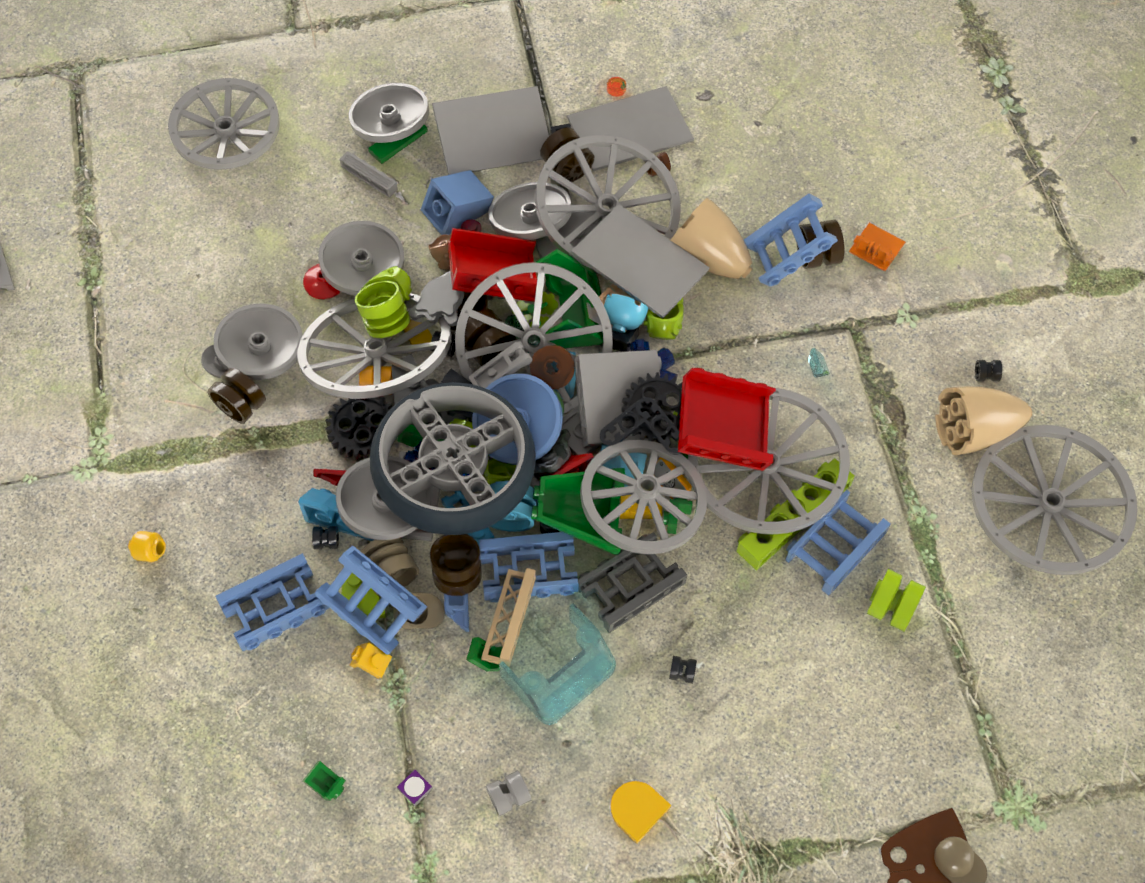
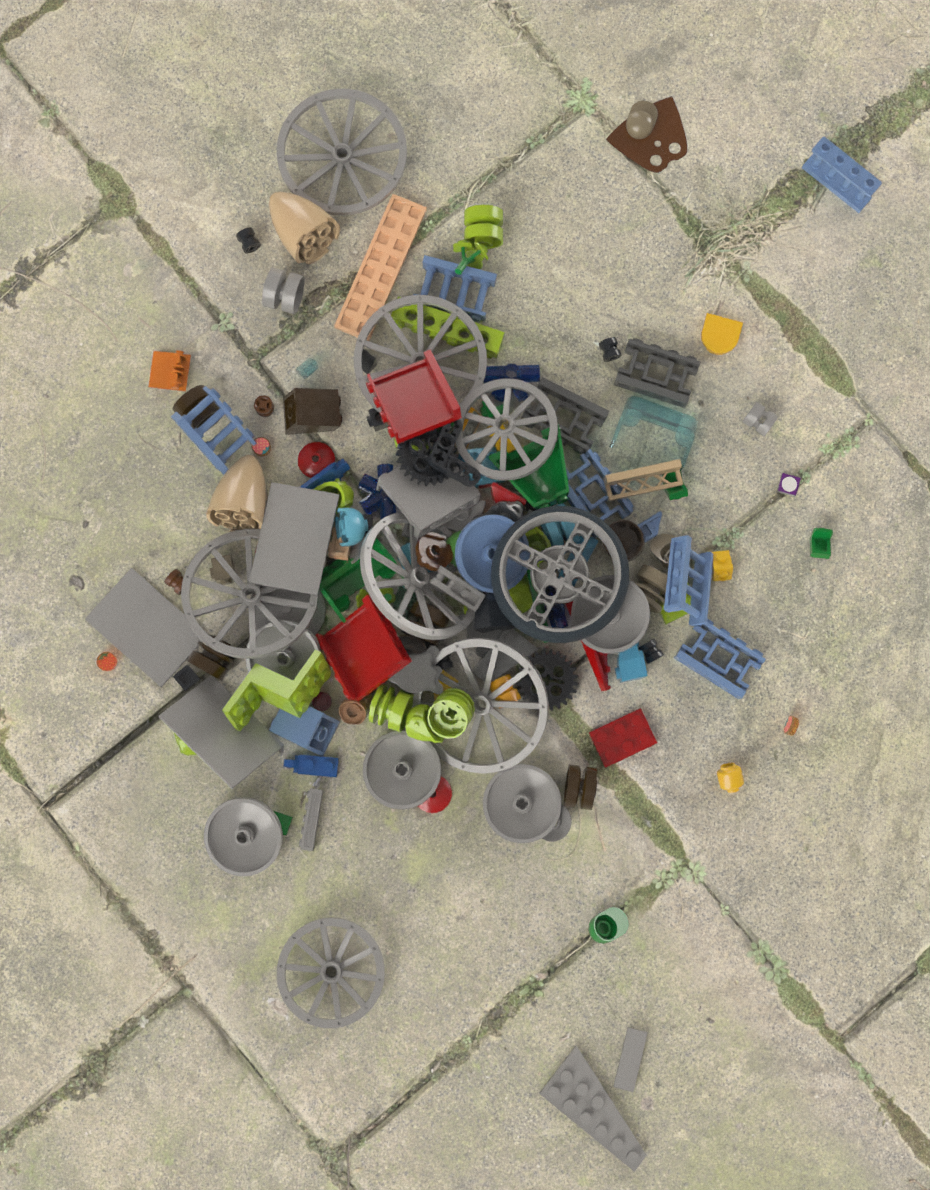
camera: 120 degrees left, 20 degrees up
(93, 363) = (608, 925): none -> green cap
(155, 639) = (791, 725): none -> clear orange tile
(258, 469) = (622, 738): none -> red plate
(412, 201) = (313, 765): none -> blue hinge
(424, 266) = (387, 706): none -> lime wheel
(500, 179) = (286, 694): none -> lime bracket
(613, 691) = (653, 387): none -> dark grey fence
(648, 211) = (218, 572): none -> dark tan brick
(691, 329) = (328, 474): none -> blue hinge
(693, 551) = (525, 373): none -> clear blue piece
(713, 338) = (309, 467): none -> red dish
(755, 289) = (262, 447): none -> tile
(767, 344) = (311, 411): none -> dark brown slope
(794, 421) = (368, 362): none -> black slope
(800, 303) = (261, 406): none -> reddish brown wheel
(864, 578) = (472, 257): none -> lime plant
(903, 485) = (381, 264): none -> light nougat plate
(913, 371) = (278, 288): none -> light grey wheel

